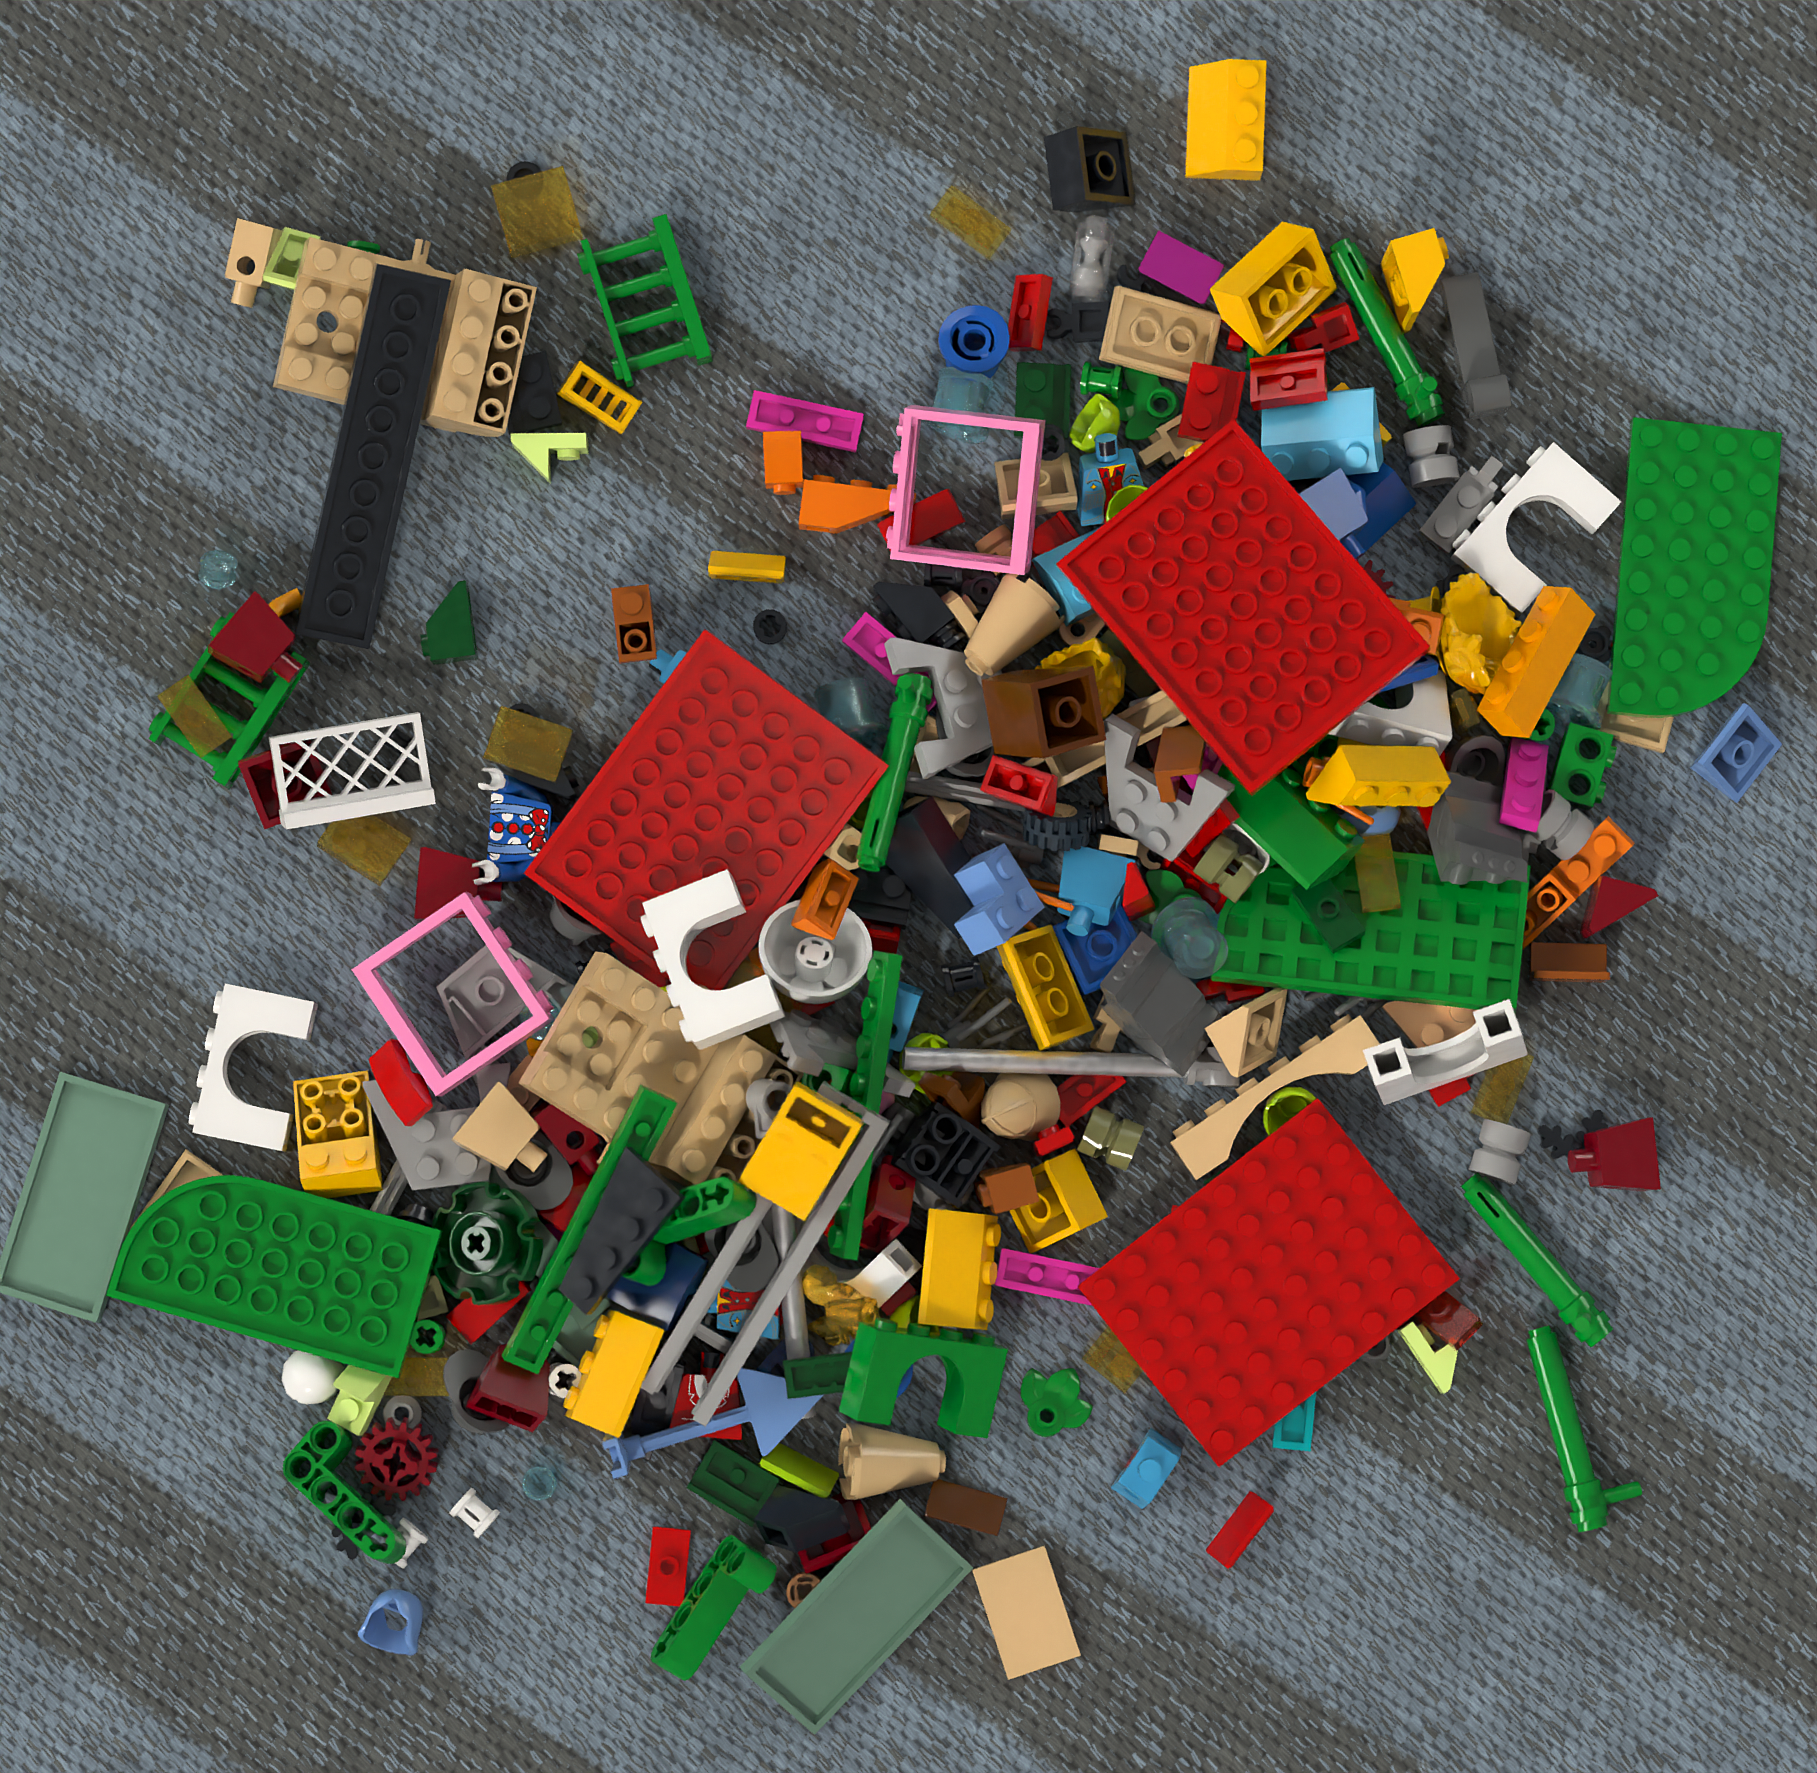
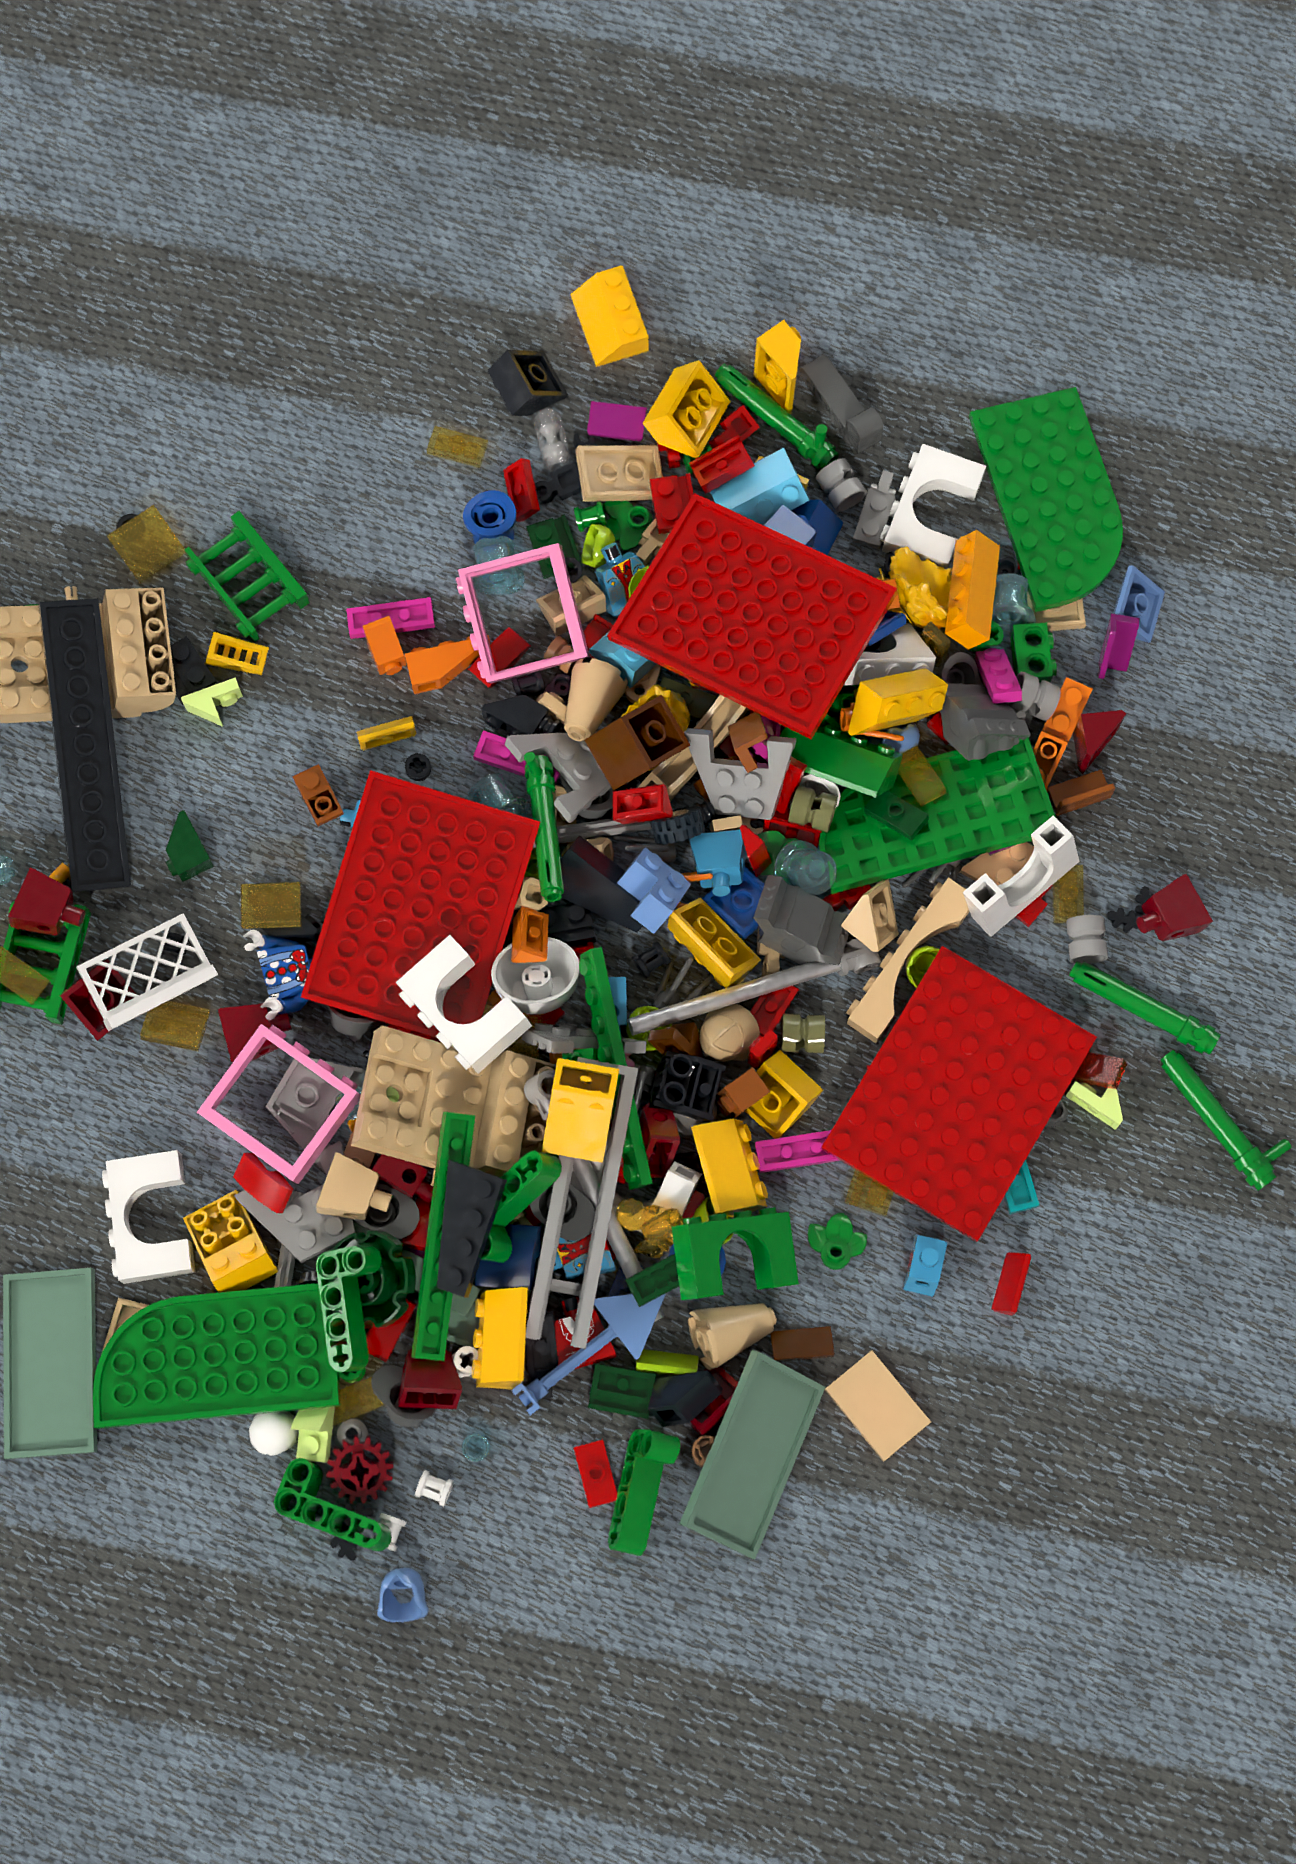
camera: 20 degrees left, 10 degrees down
(436, 1328) = (354, 1353): none -> green beam
(1690, 795) = (1118, 643): none -> magenta panel

